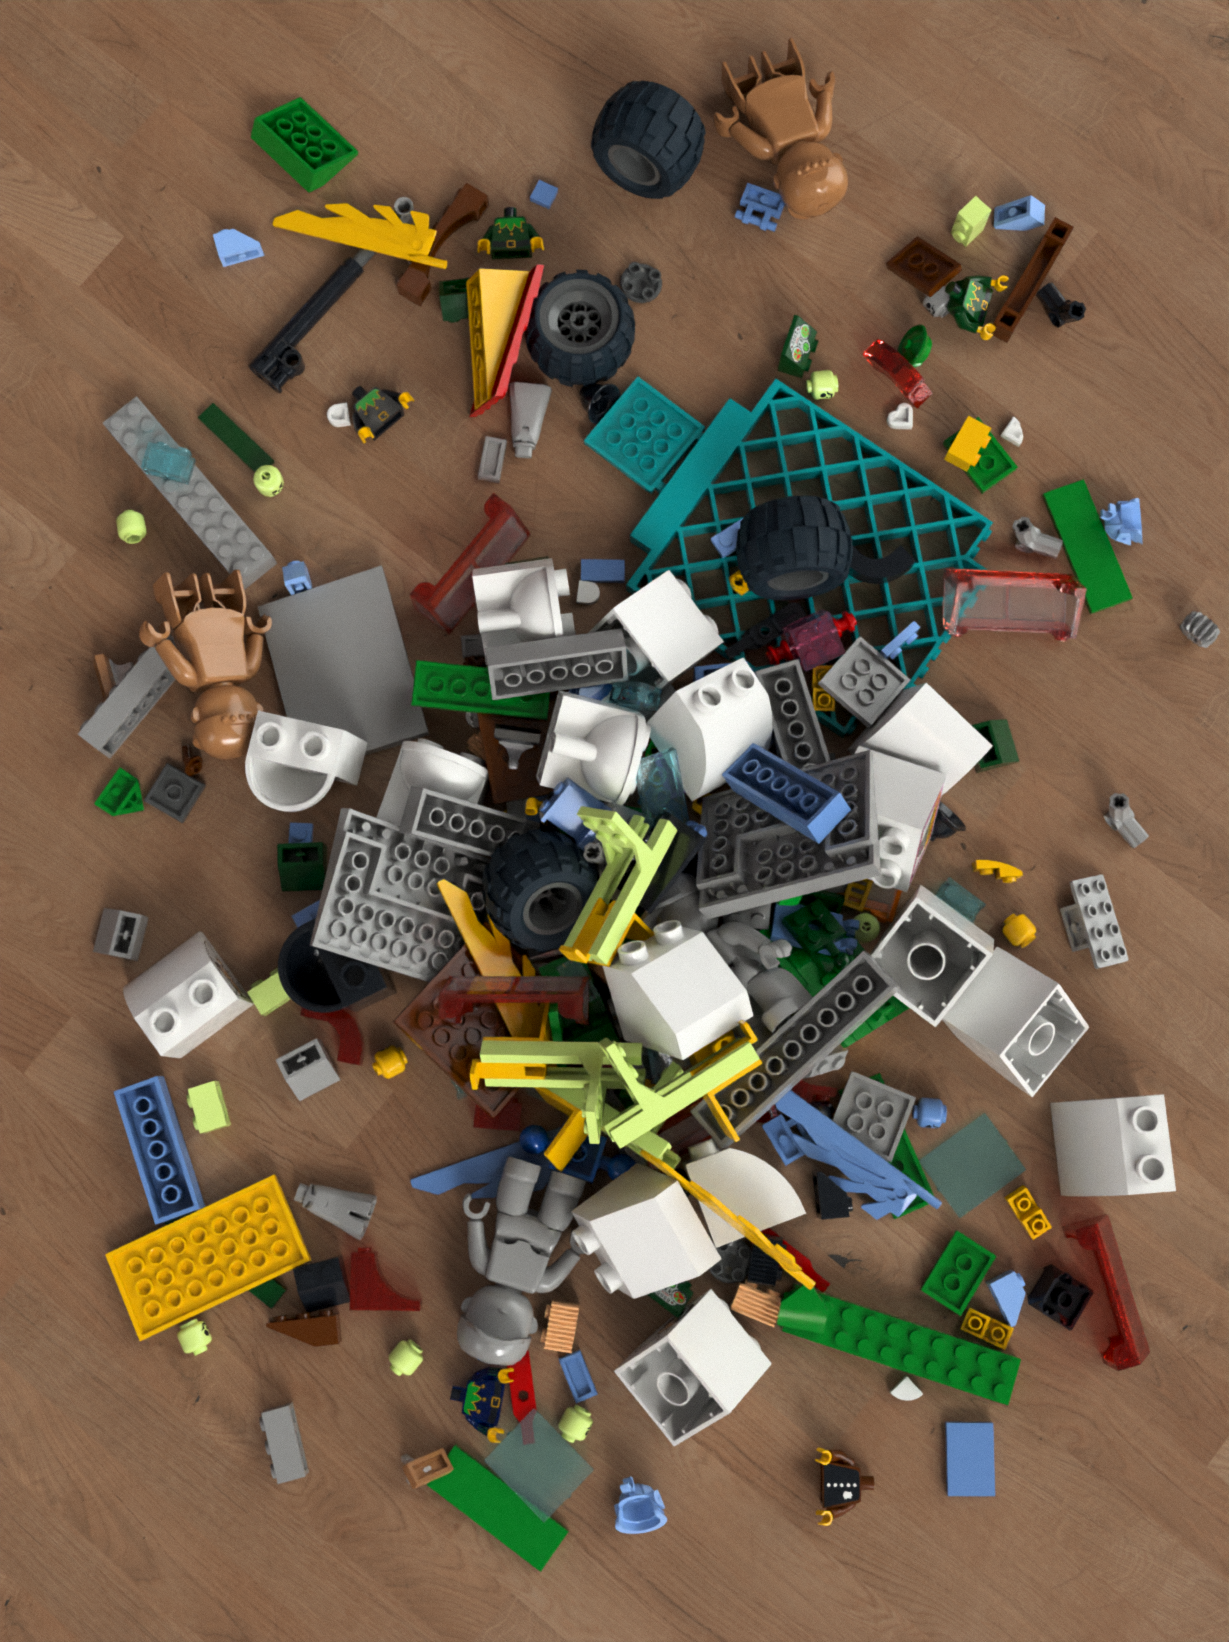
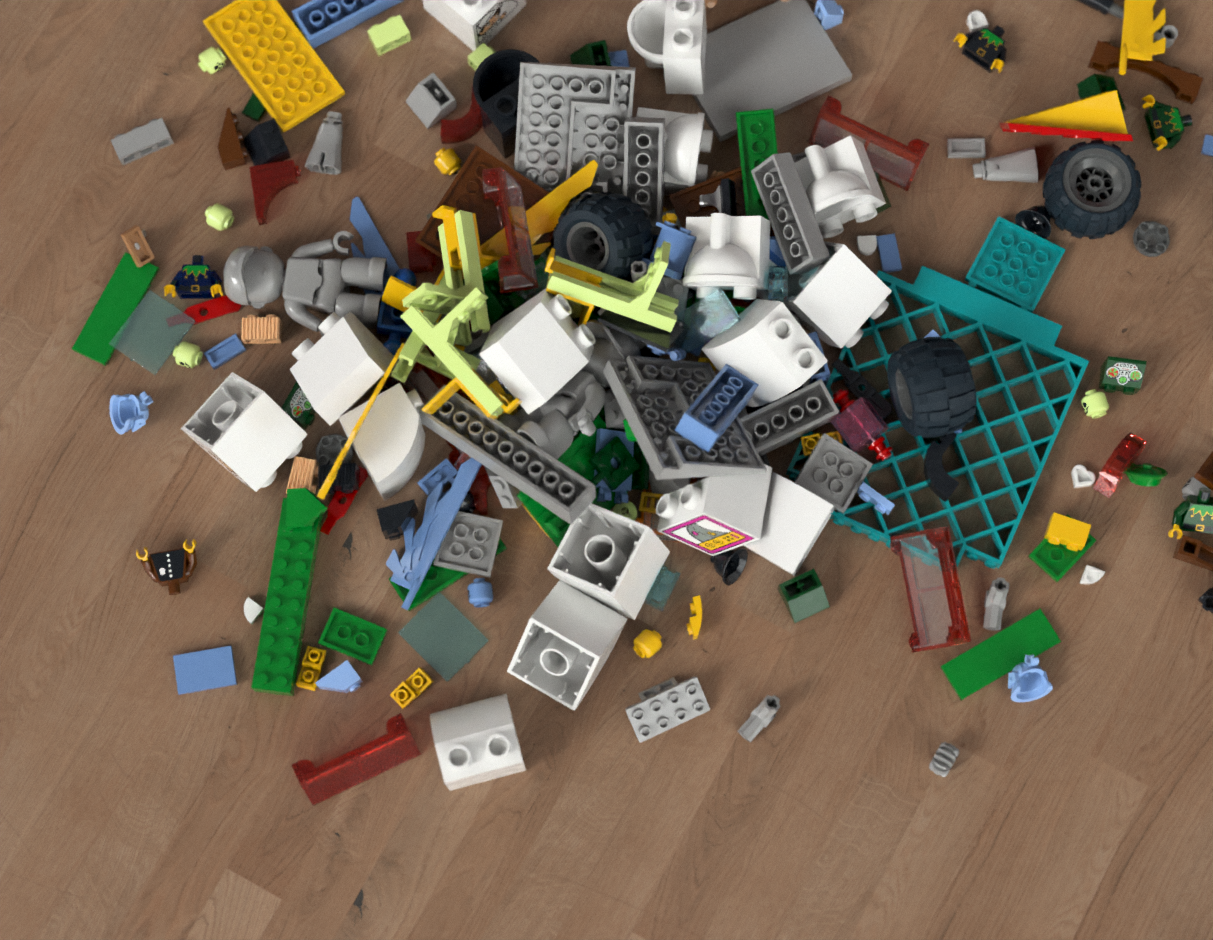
camera: 80 degrees right, 5 degrees down
(1060, 1296) = (346, 724): black slope -> none

